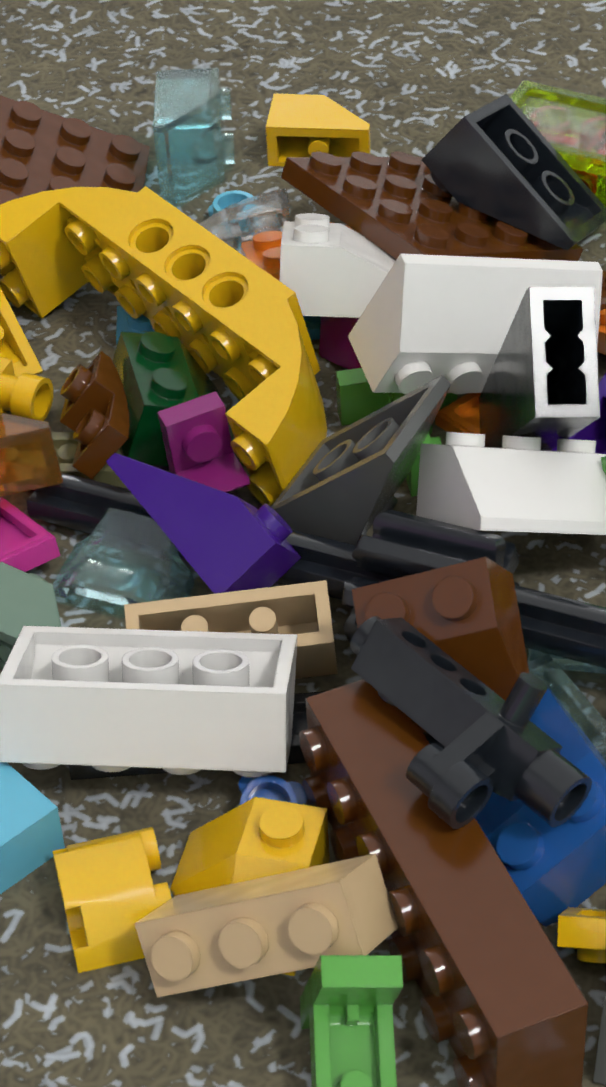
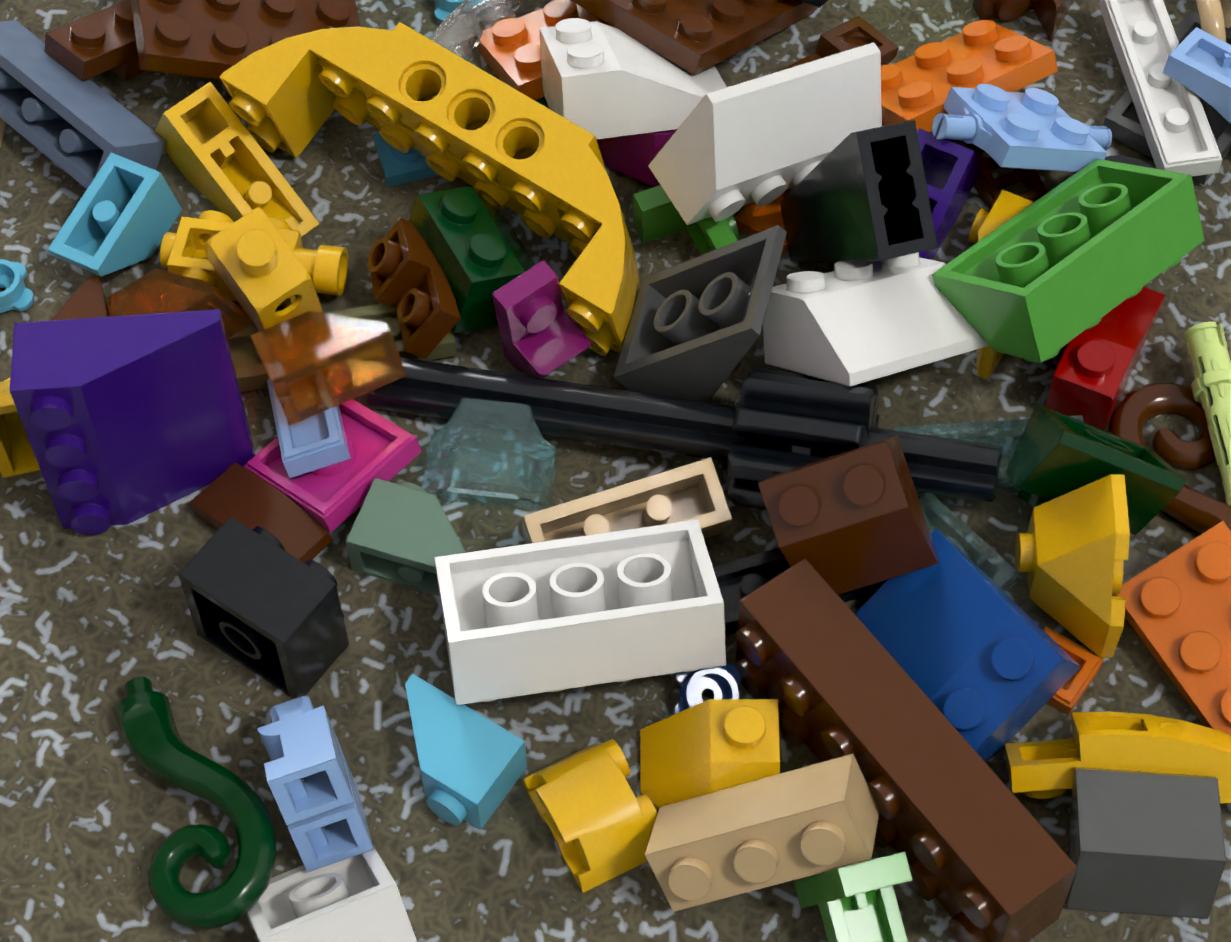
camera: 15 degrees left, 15 degrees up
(214, 531) = (587, 418): dark purple slope -> none
(484, 737) = (927, 621): black piece -> none

